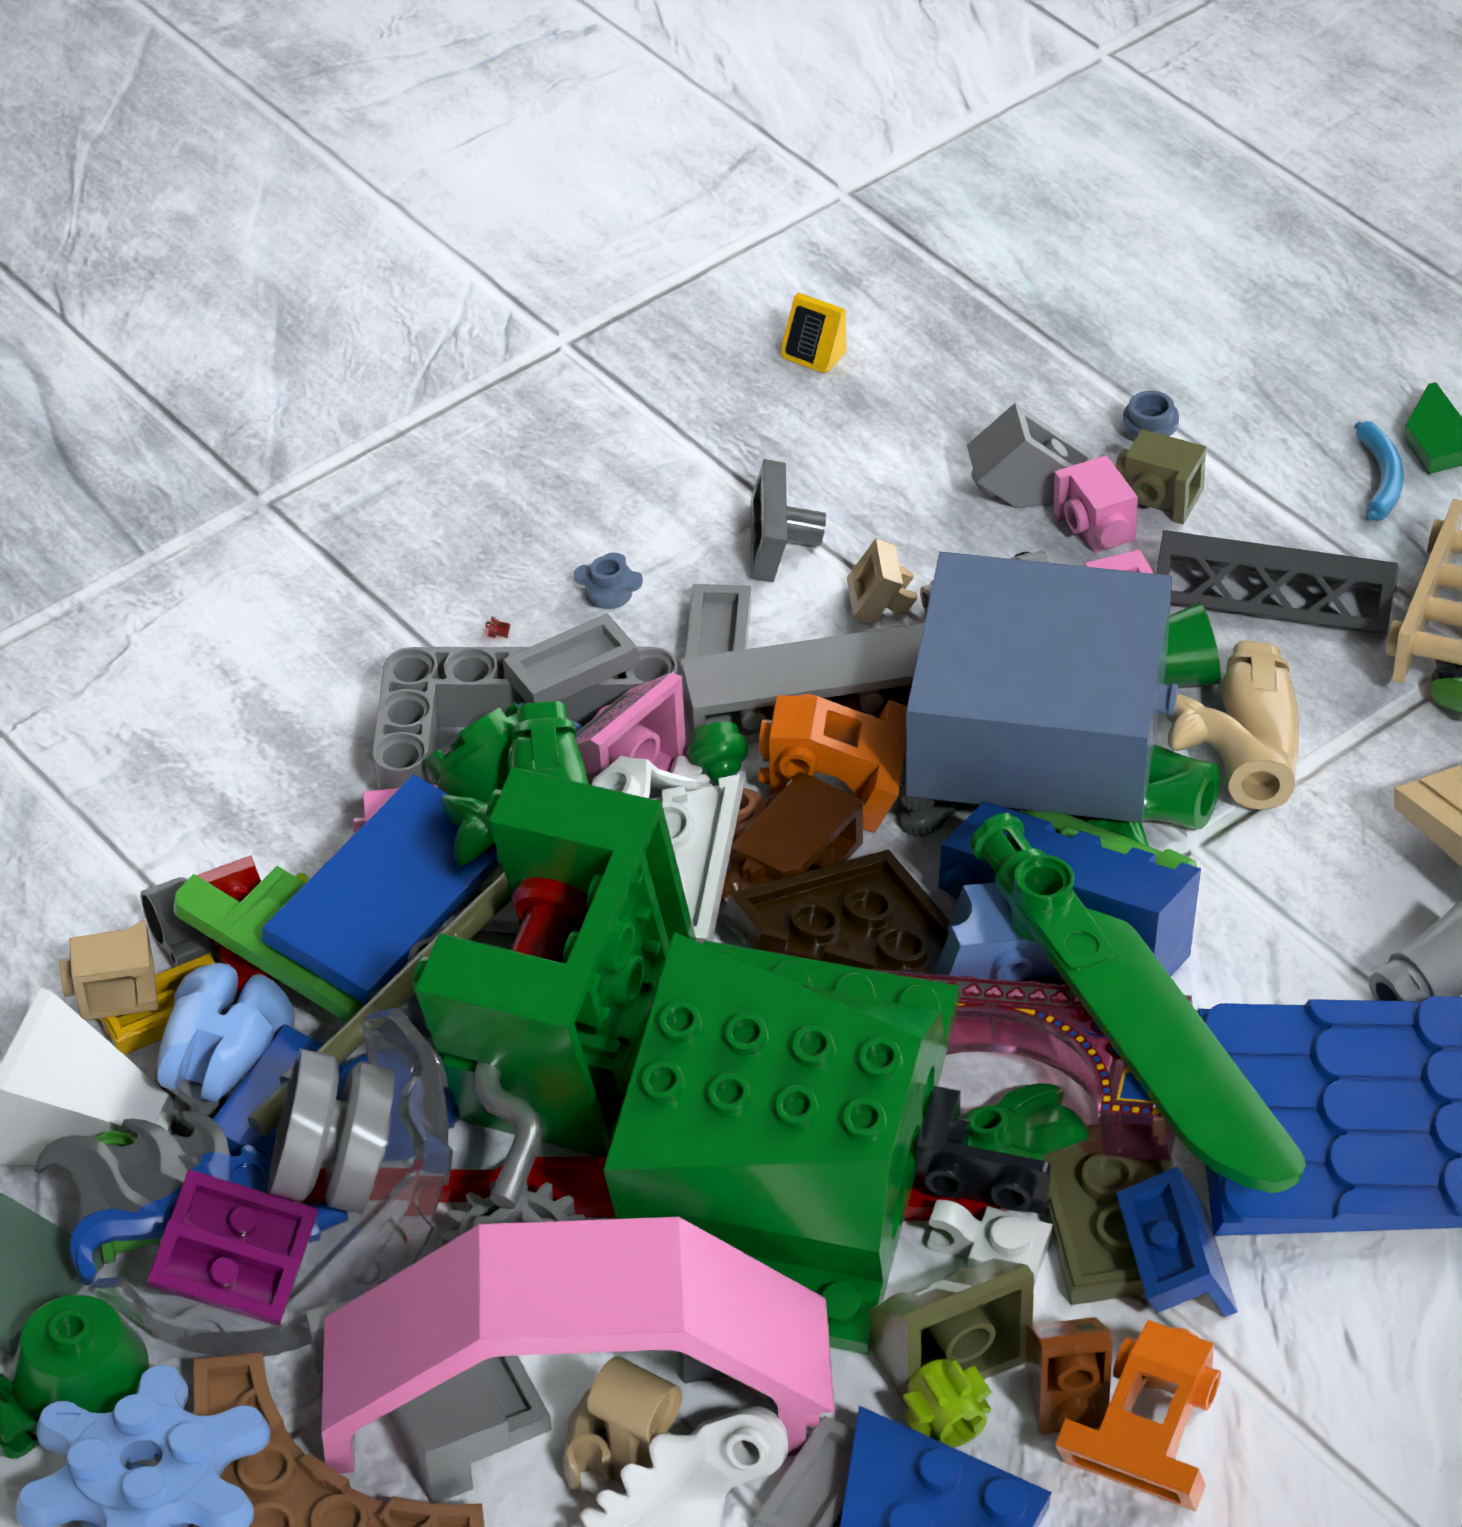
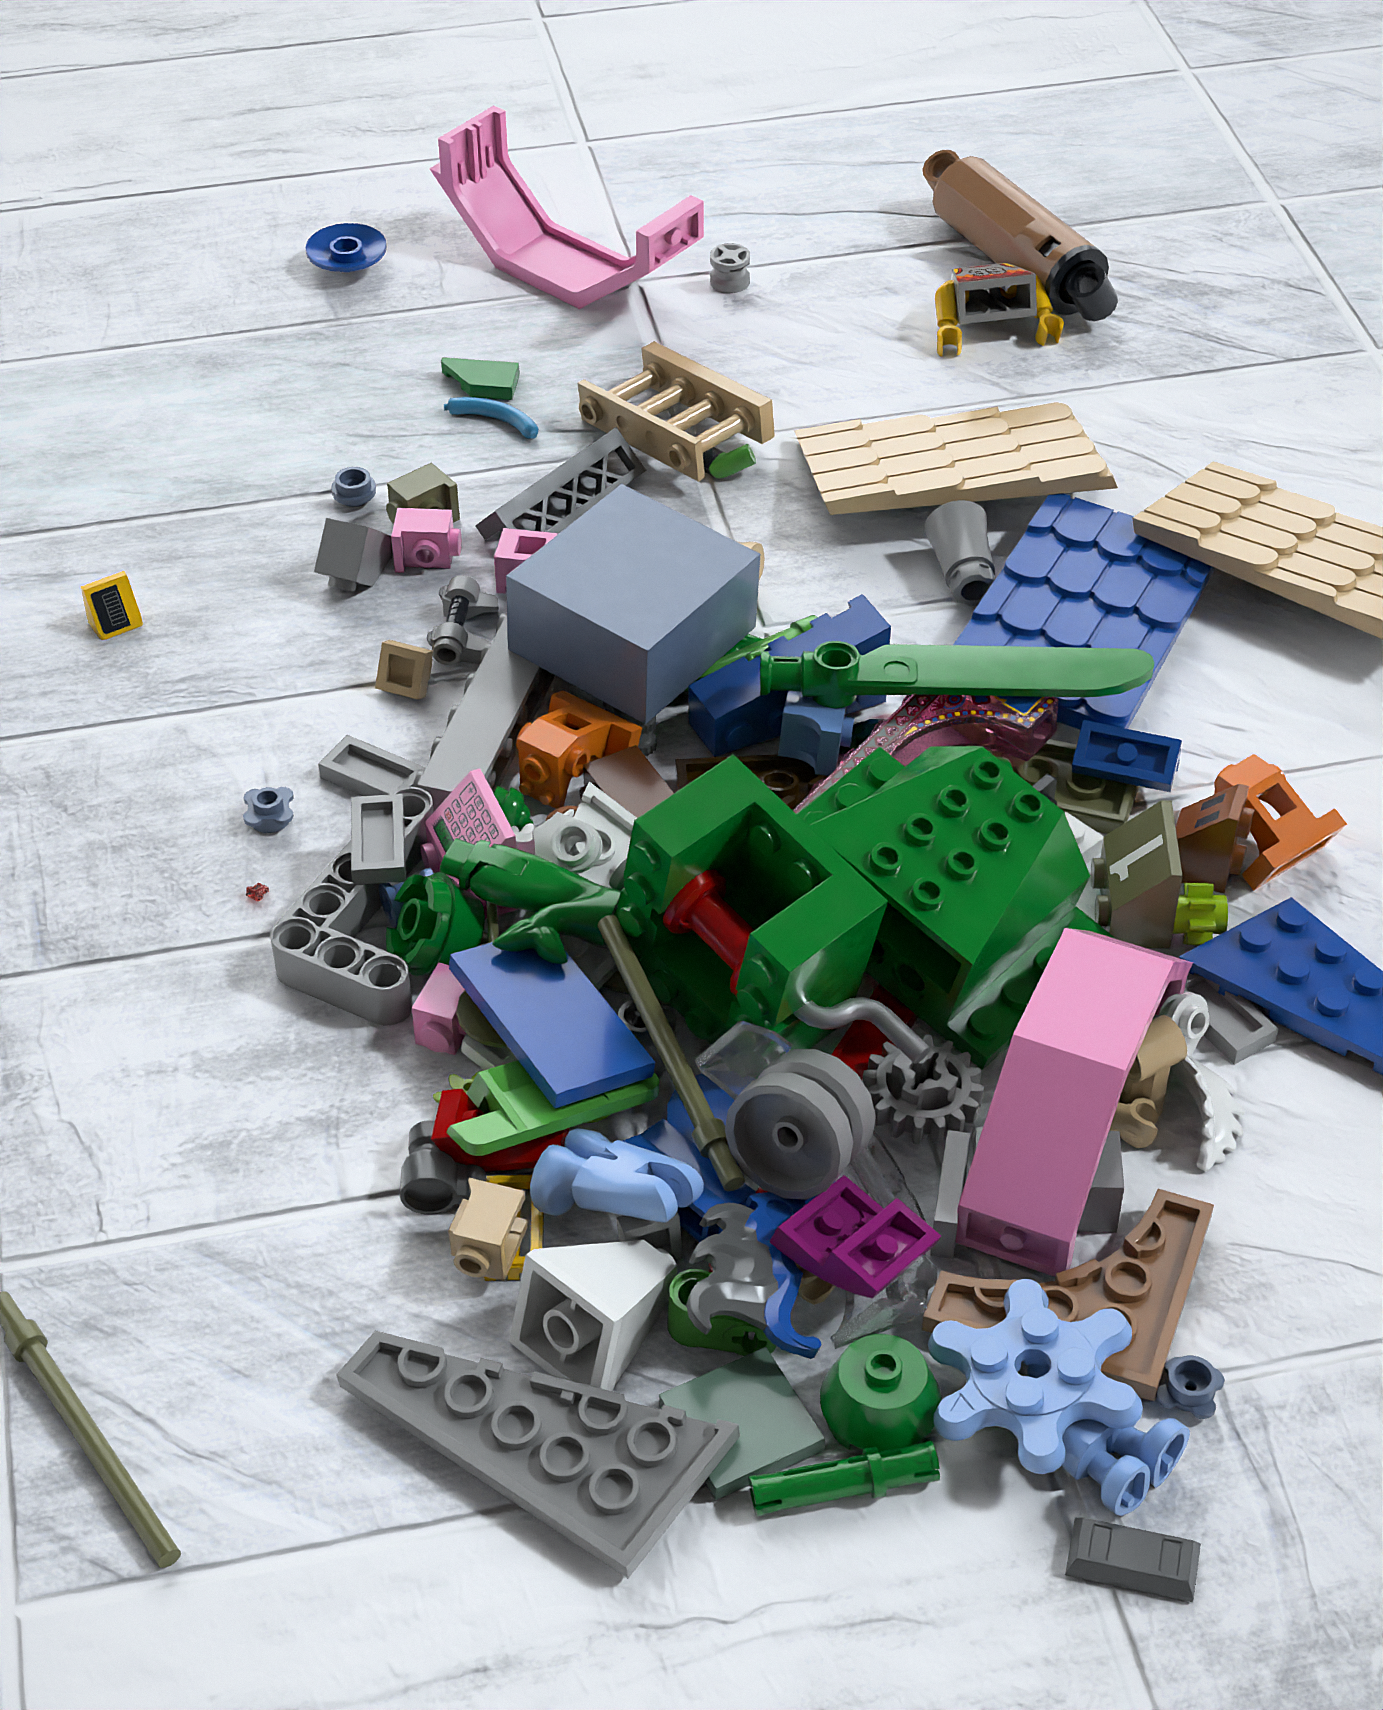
camera: 65 degrees left, 0 degrees up
(776, 523) = (293, 698): dark grey tile -> none

